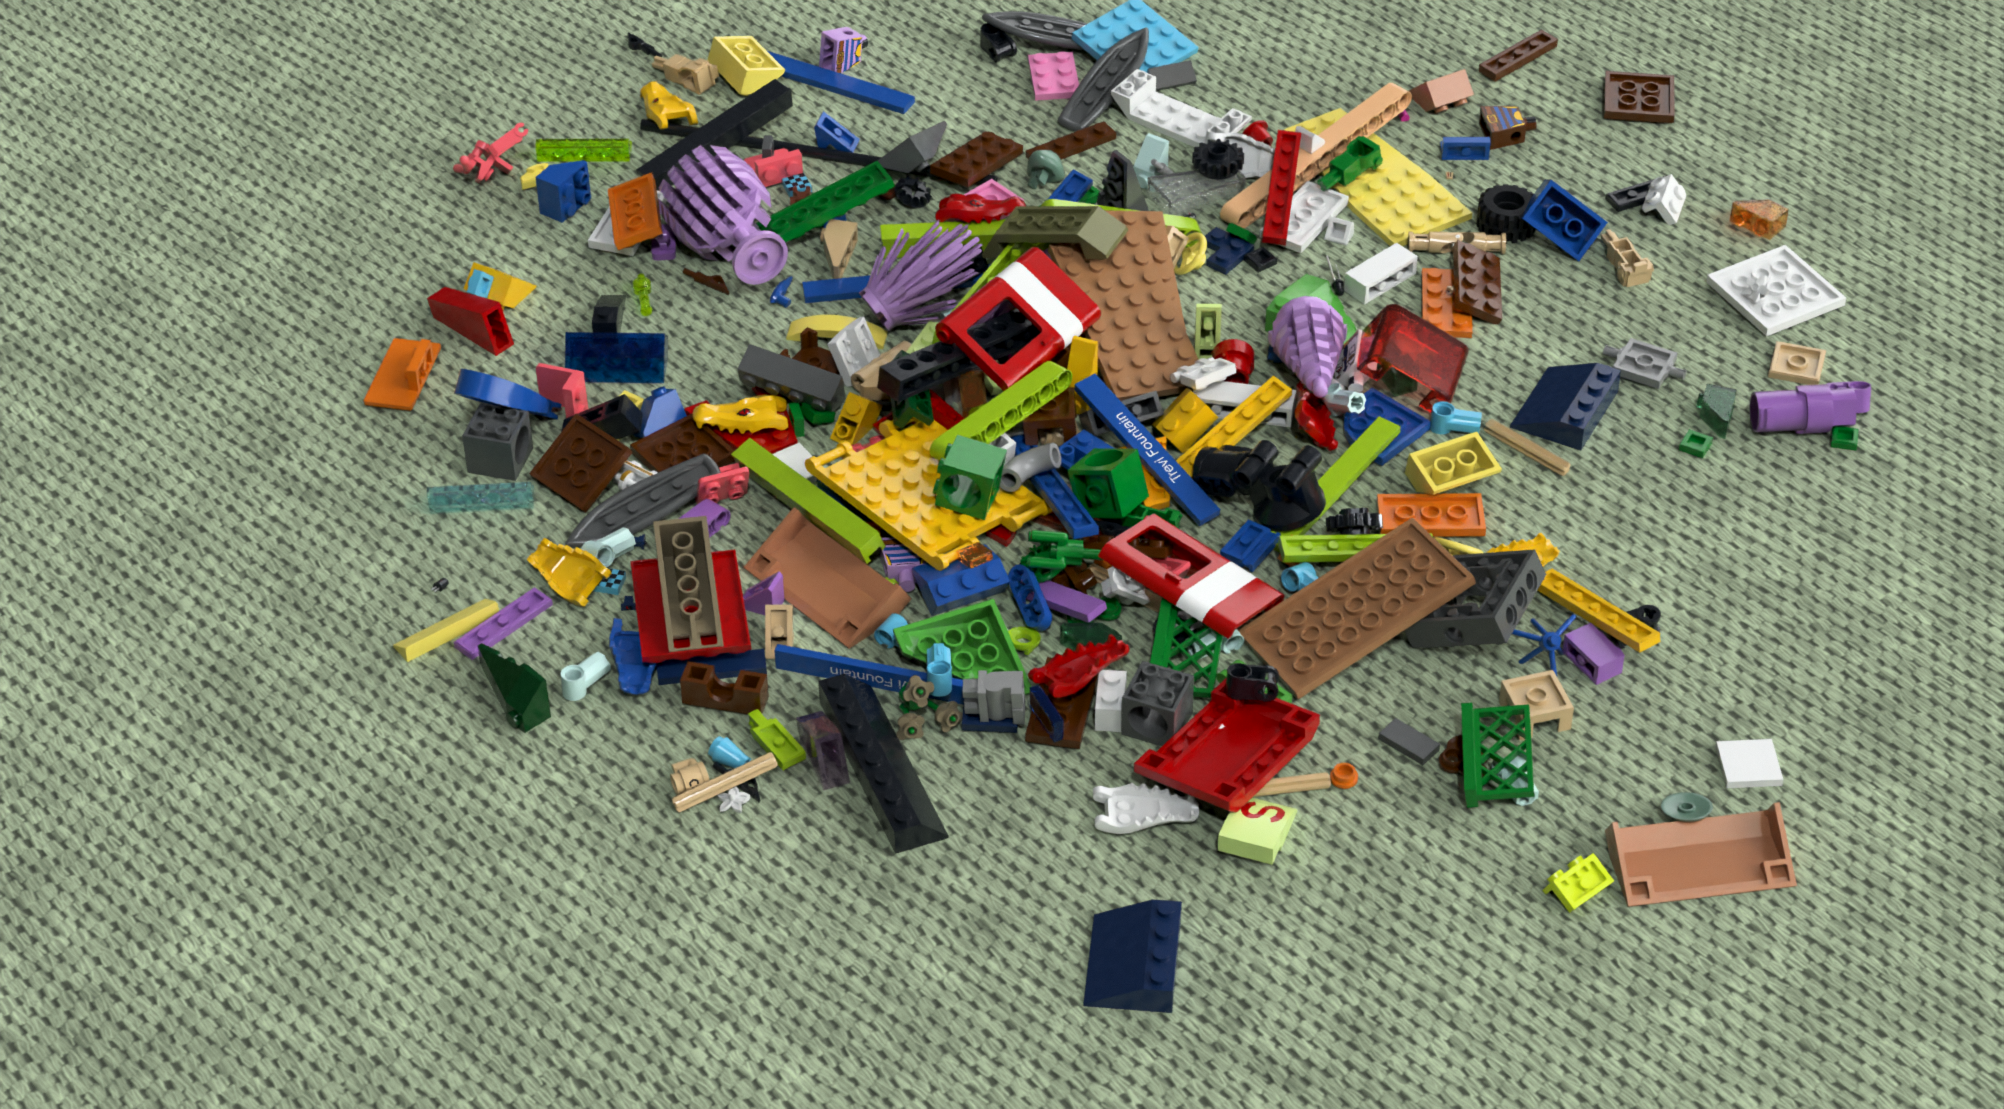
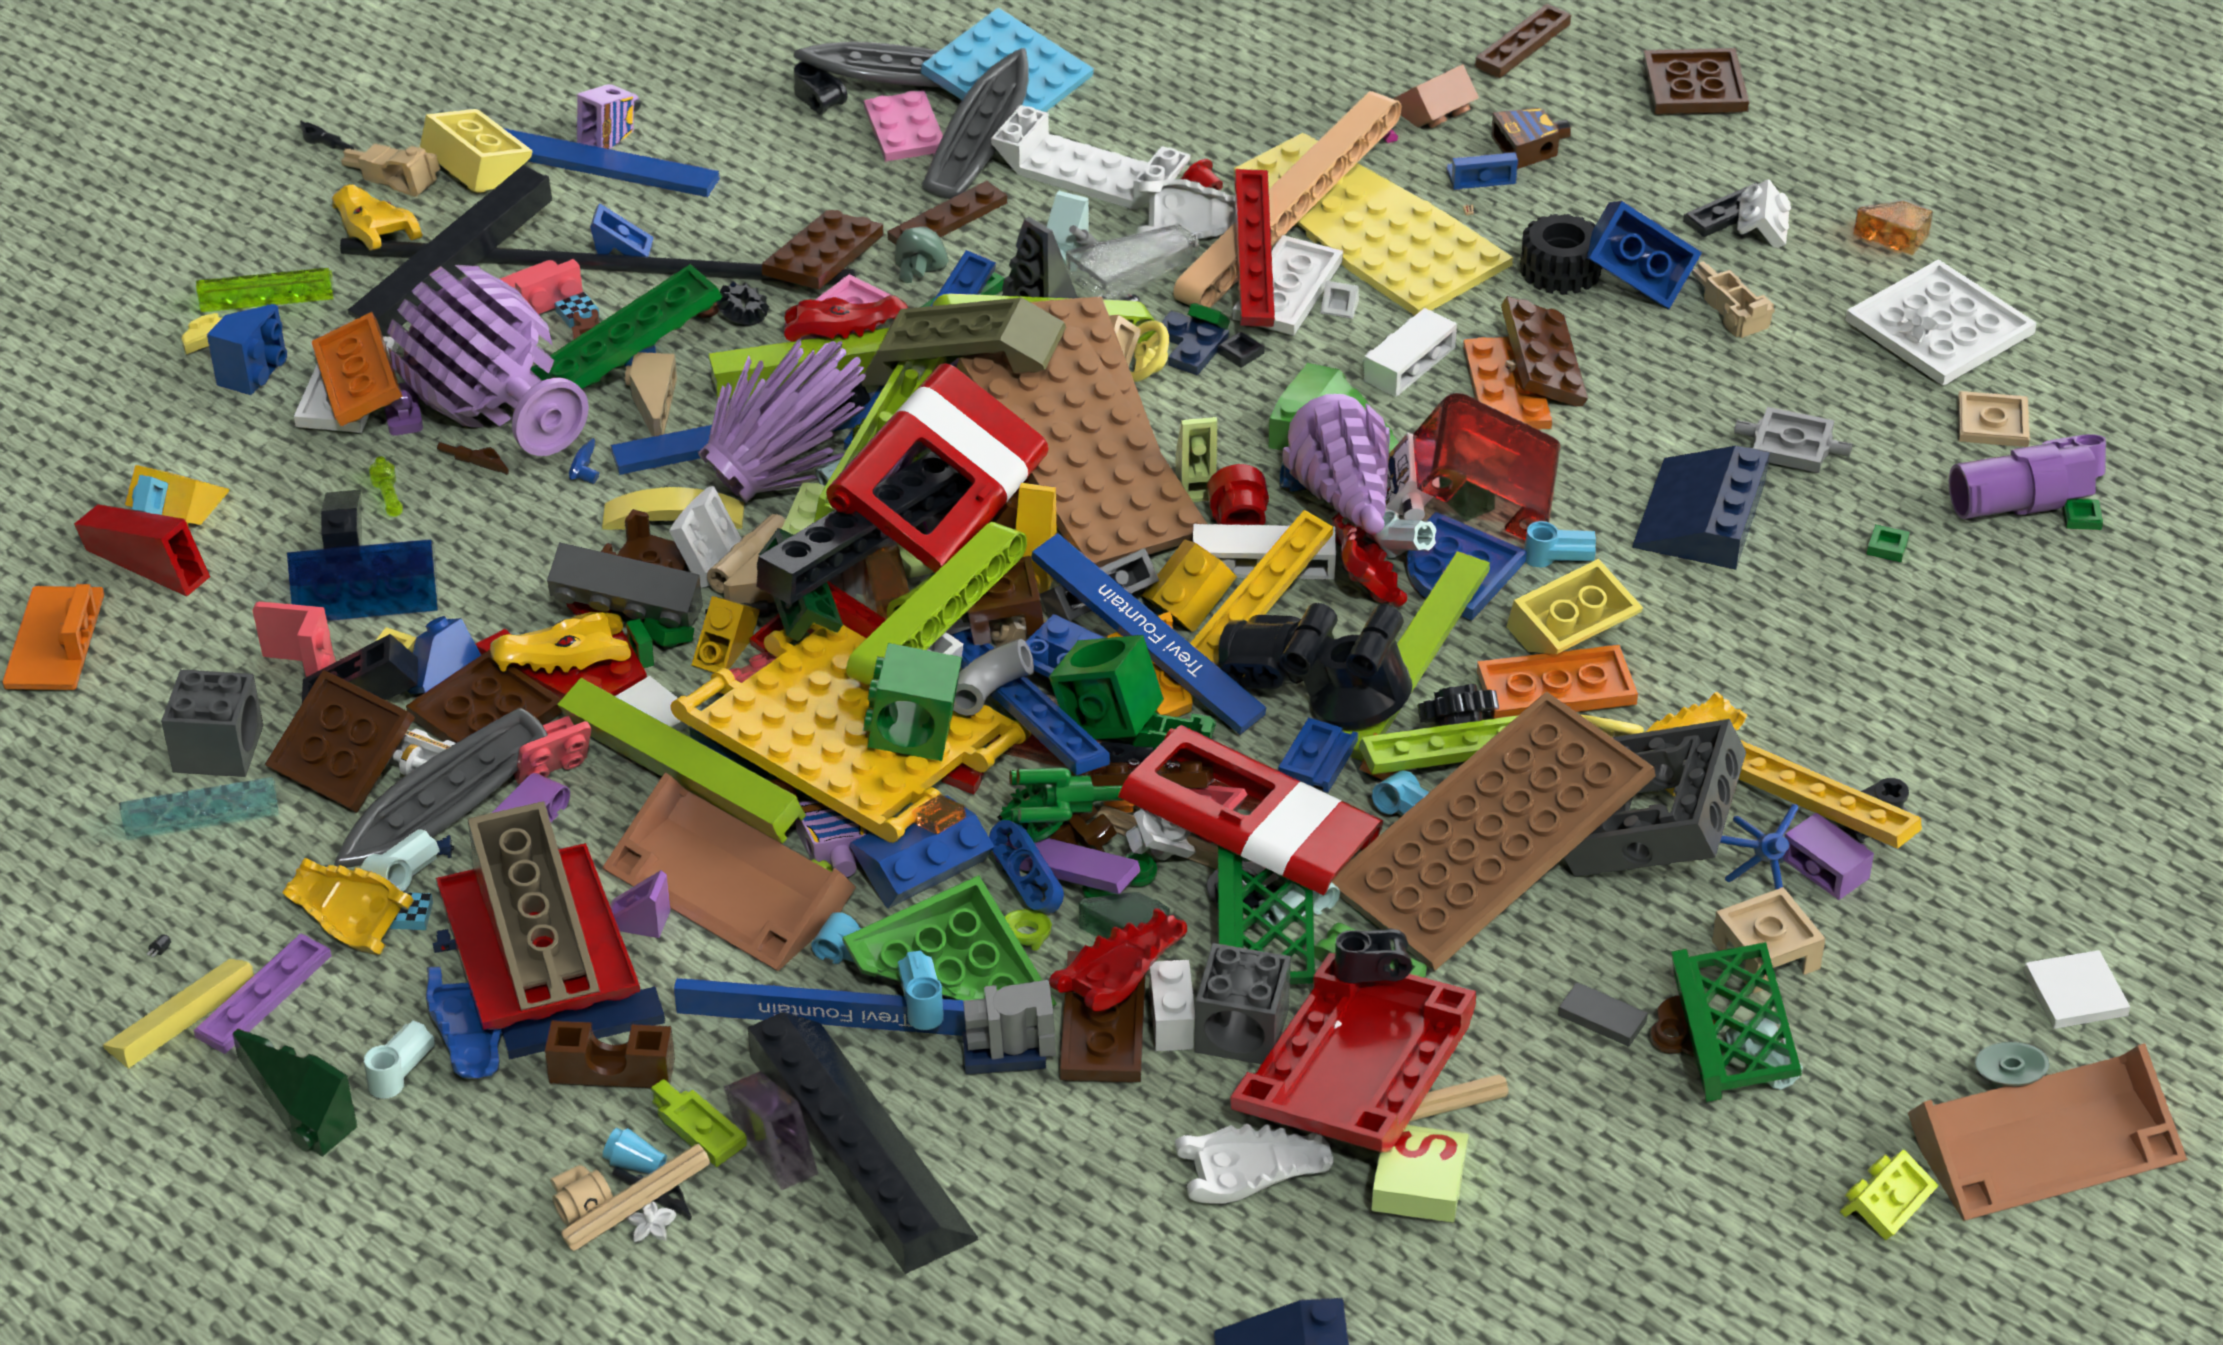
camera: 10 degrees left, 0 degrees up
(492, 154) = (135, 308): coral piece -> none
(503, 393) = (210, 652): blue animal -> none
(768, 146) = (529, 260): dark grey tile -> none
(778, 628) = (672, 954): tan slope -> none
(913, 697) = (894, 1031): dark tan plant -> none
(915, 150) = (737, 247): dark grey wedge -> none
(1046, 713) = (1087, 1036): clear blue tile -> none
(1173, 75) = (1069, 109): dark grey tile -> none
(1204, 372) = (1205, 516): white plate -> none
(1218, 159) = (1159, 217): black gear -> none
(1309, 141) = (1279, 179): white slope -> none
(1338, 283) = (1355, 372): black piece -> none
(1344, 776) = (1524, 1076): orange plate -> none
(1350, 165) = (1336, 210): green piece -> none
(1443, 241) = (1488, 300): tan piece -> none
(1527, 447) = (1664, 572): tan axle -> none
(1717, 407) = (1906, 491): clear green slope -> none

